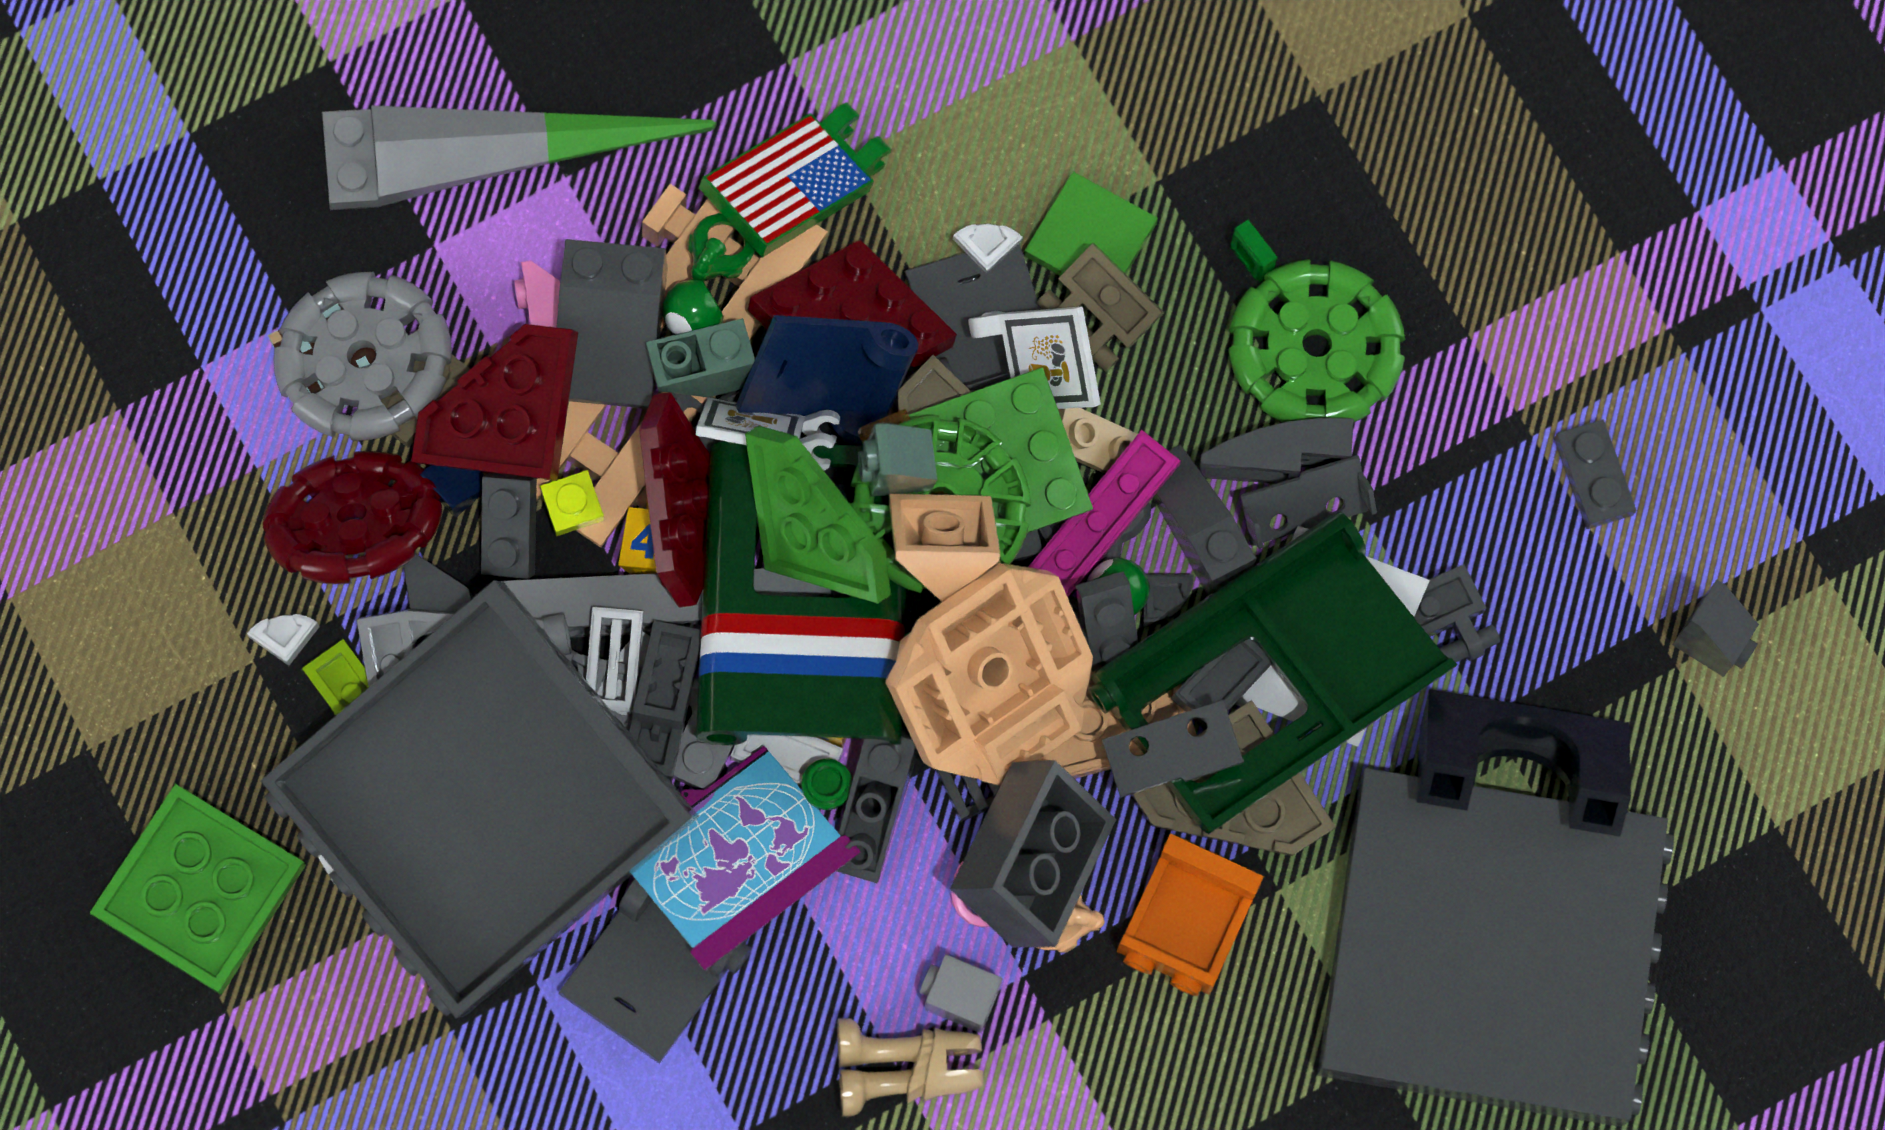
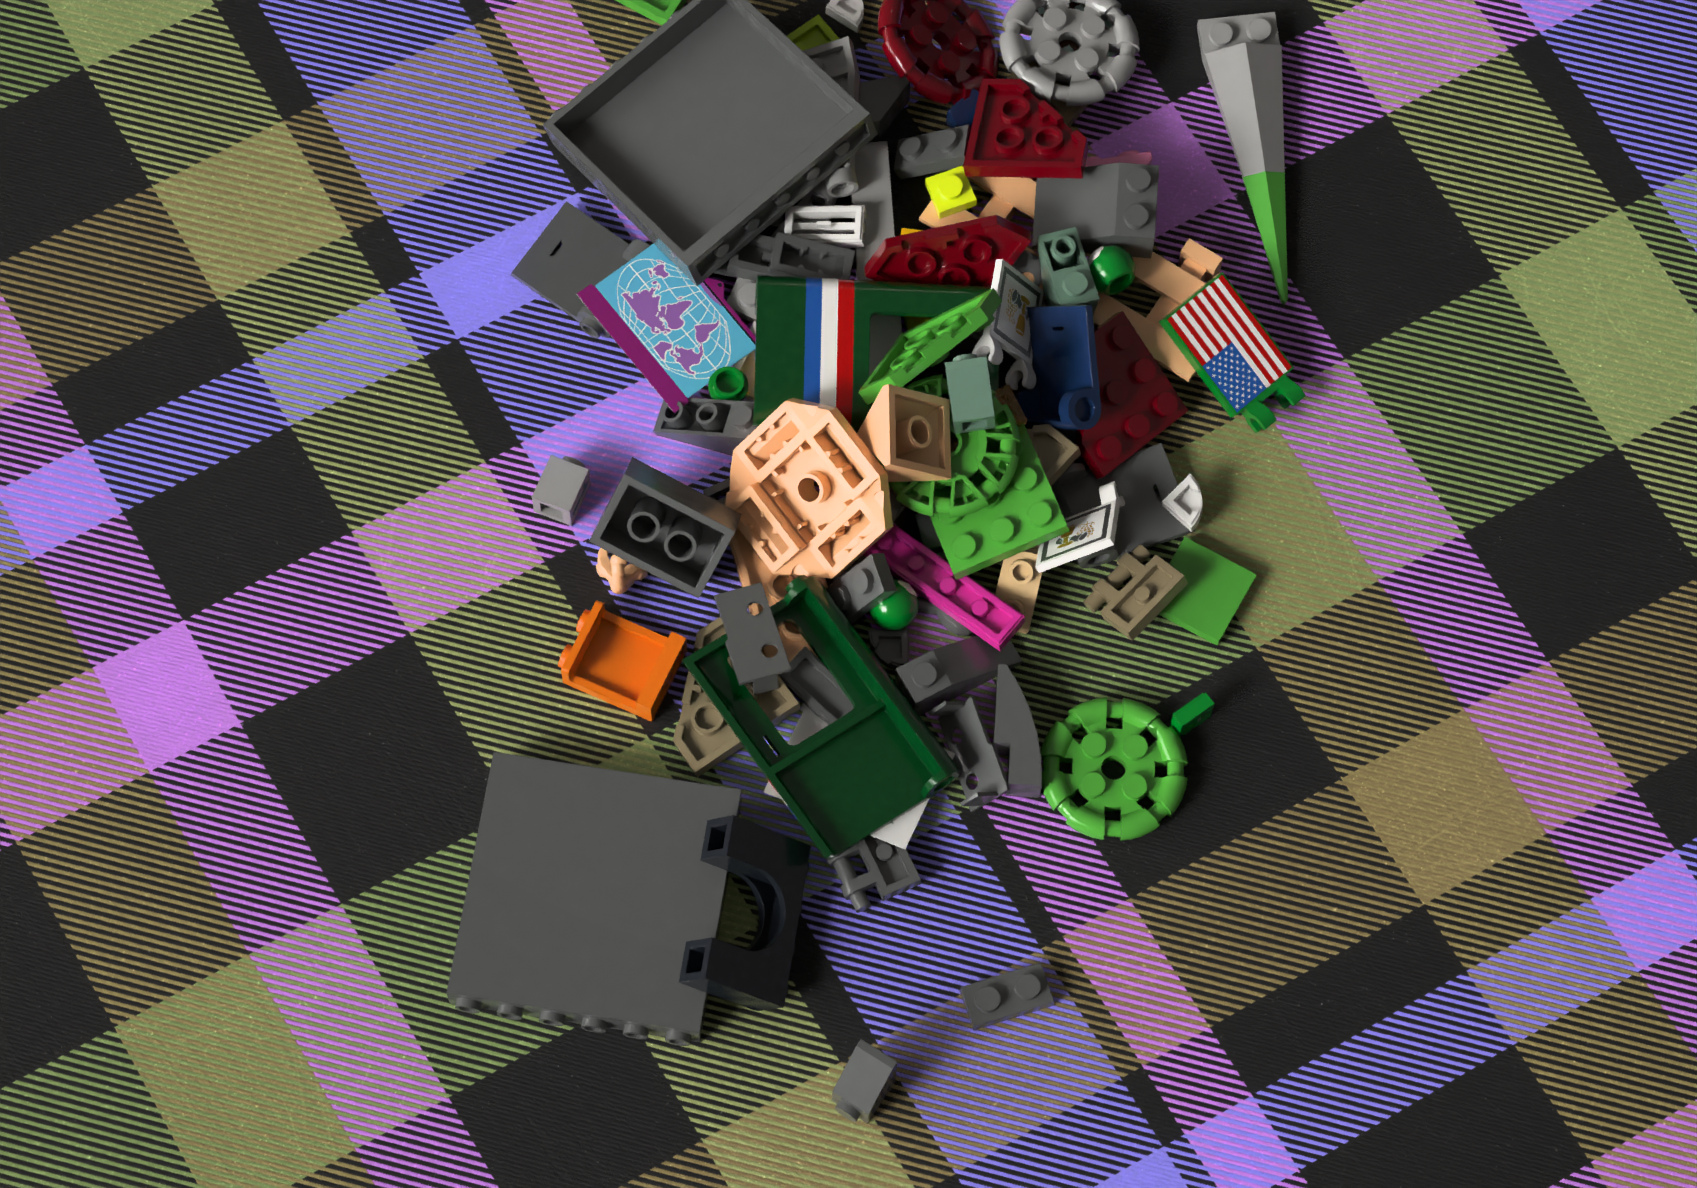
camera: 90 degrees right, 5 degrees down
(709, 255) = (1151, 282): green piece -> none
(926, 1079) = (495, 461): tan piece -> none

